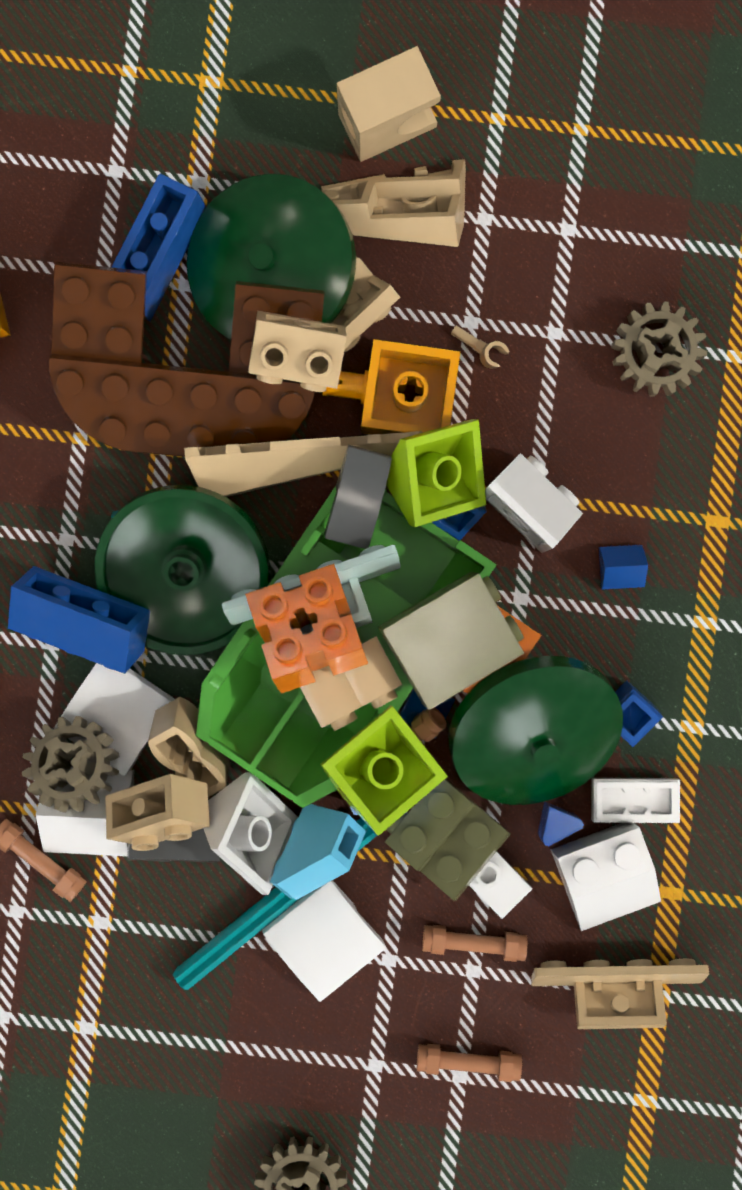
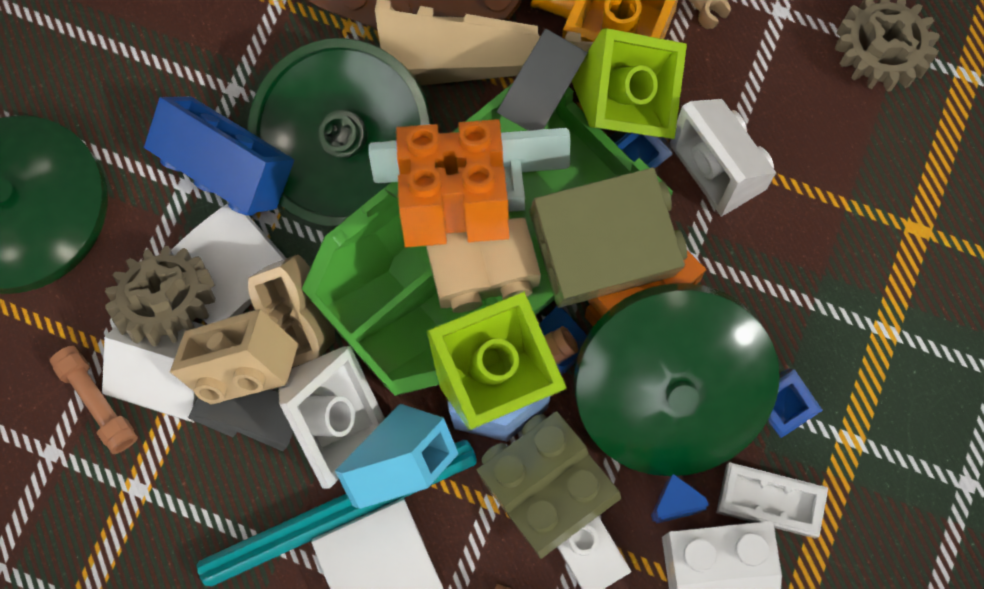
camera: 20 degrees right, 15 degrees down
(623, 567) = (806, 249): blue slope -> none

